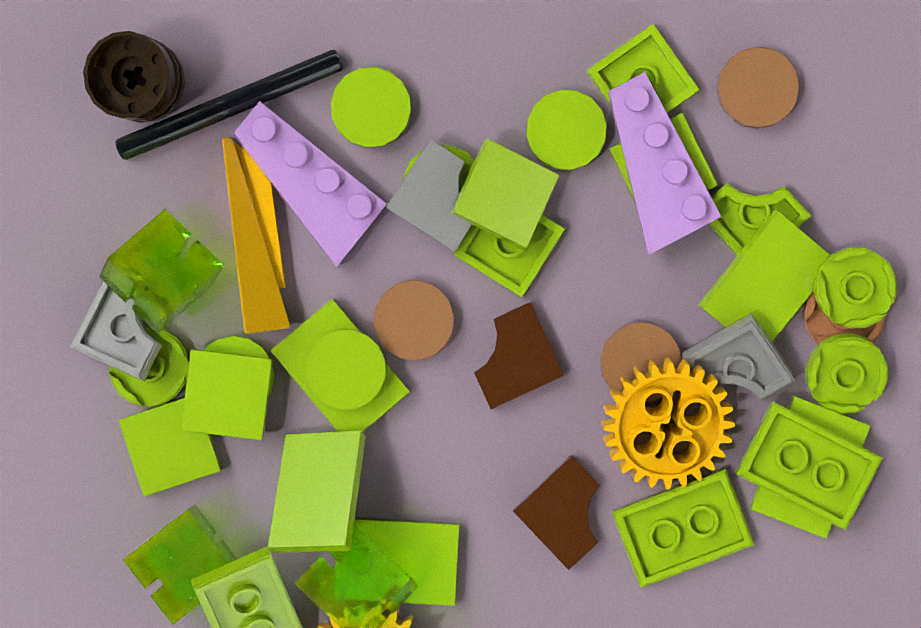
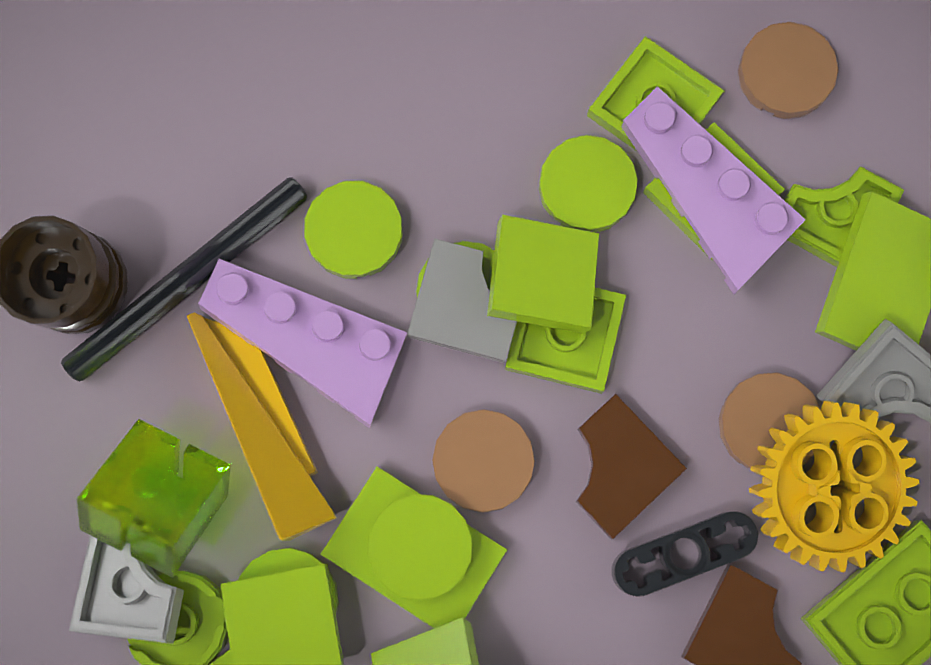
camera: 20 degrees left, 10 degrees down
(571, 444) = (714, 527): none -> black beam

